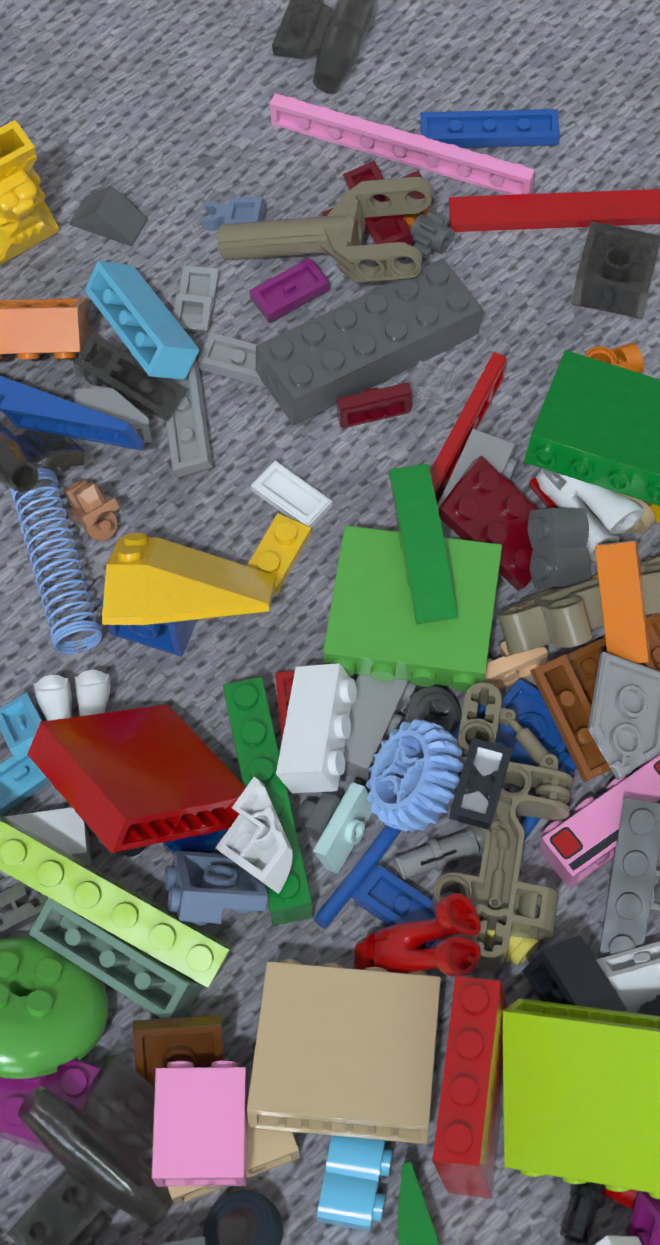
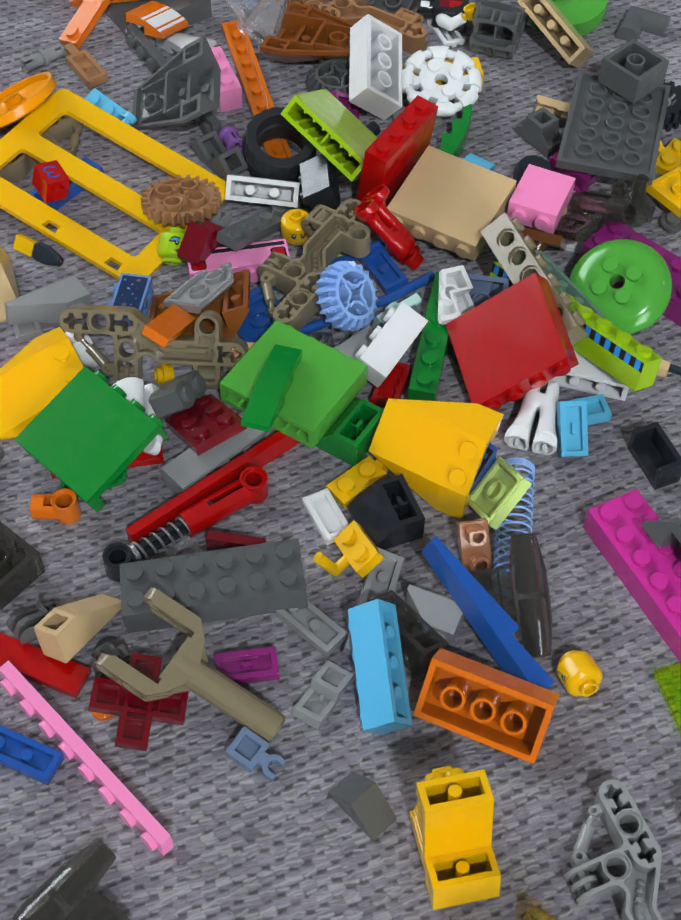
camera: 160 degrees left, 10 degrees down
(79, 572) = (498, 492): none -> yellowish green tile
(151, 900) = (499, 237): none -> dark tan brick
(212, 510) = (389, 513): none -> black slope
(231, 450) = (357, 551): none -> yellow plate
(305, 600) = (352, 432): none -> green slope
(444, 408) = (192, 520): none -> piece
(480, 783) = (315, 261): black piece -> none
(489, 244) = (73, 625): none -> tan slope
(532, 242) = (23, 623): none -> dark grey arm
(575, 917) = (291, 227): none -> yellow head

